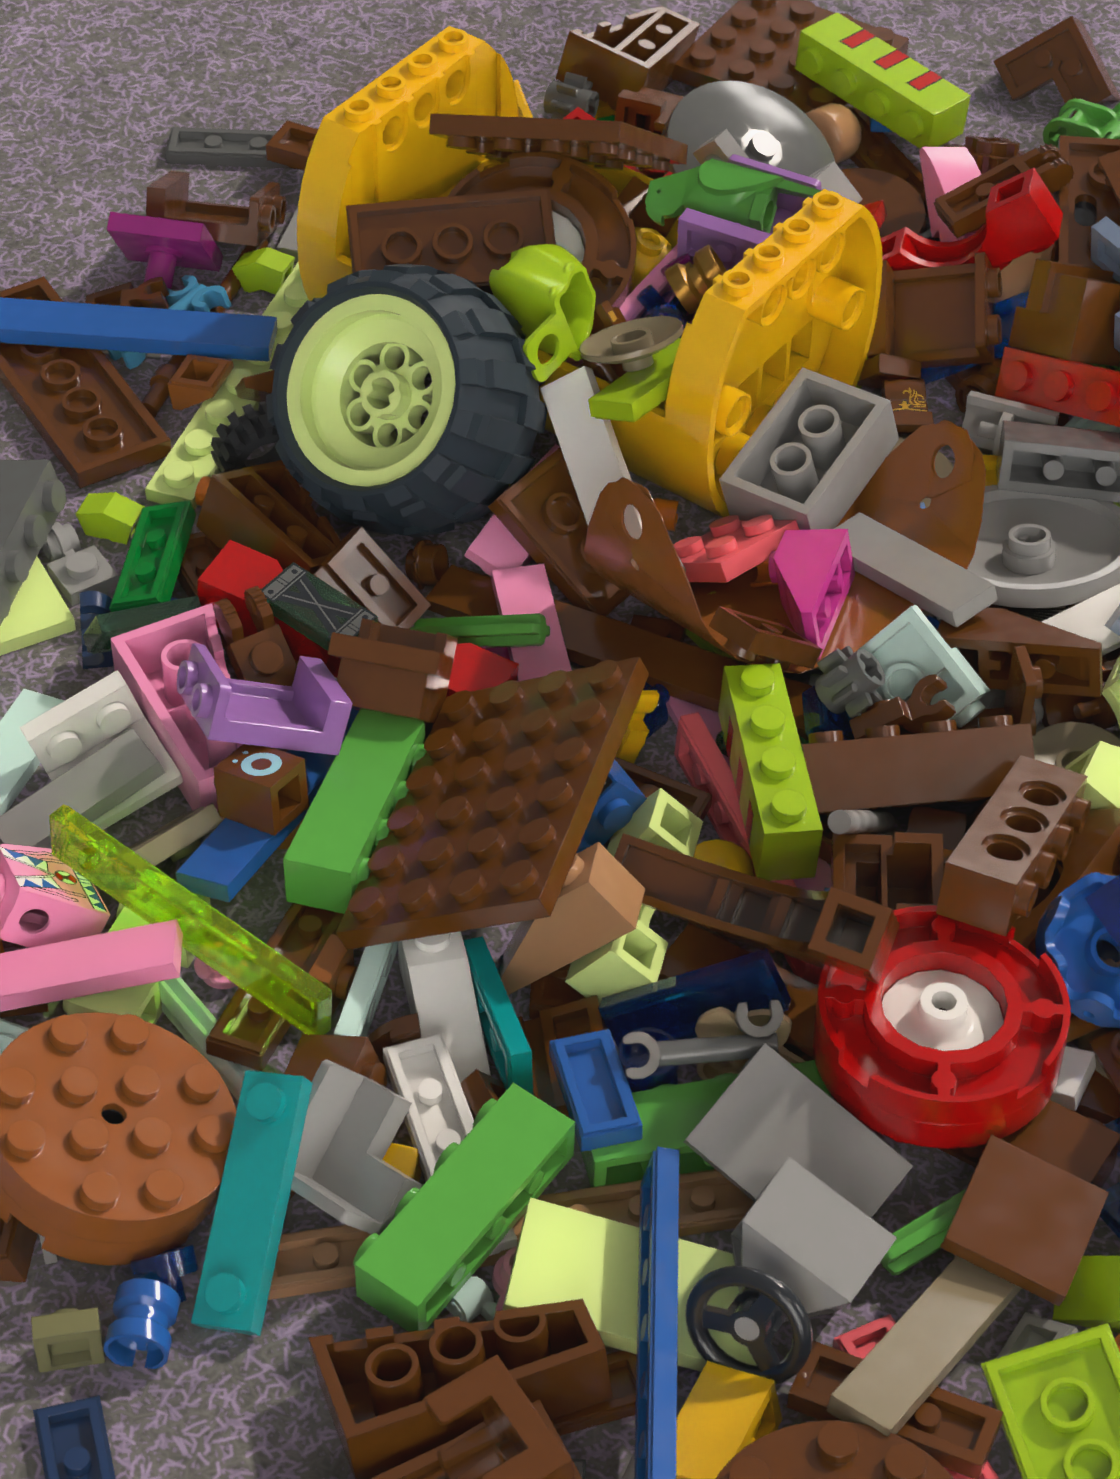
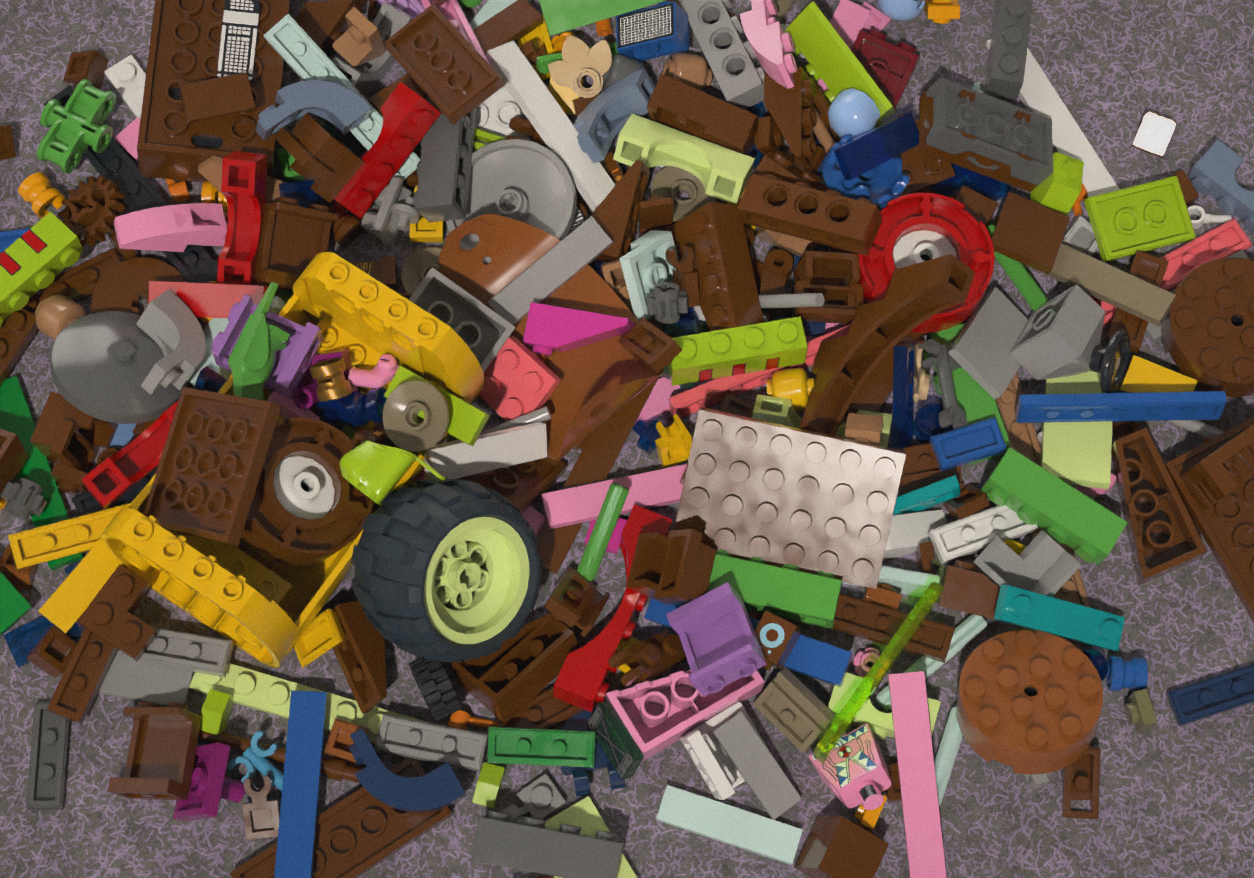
camera: 95 degrees left, 25 degrees up
(123, 393) = (413, 795): none -> dark blue arch
(179, 450) = (431, 742): none -> light grey tile
(313, 606) = (617, 622): tile -> none
(450, 233) = (315, 539): reddish brown tile -> none
(966, 205) = (193, 193): reddish brown hinge -> none
(1019, 124) = (38, 191): none -> light orange wheel

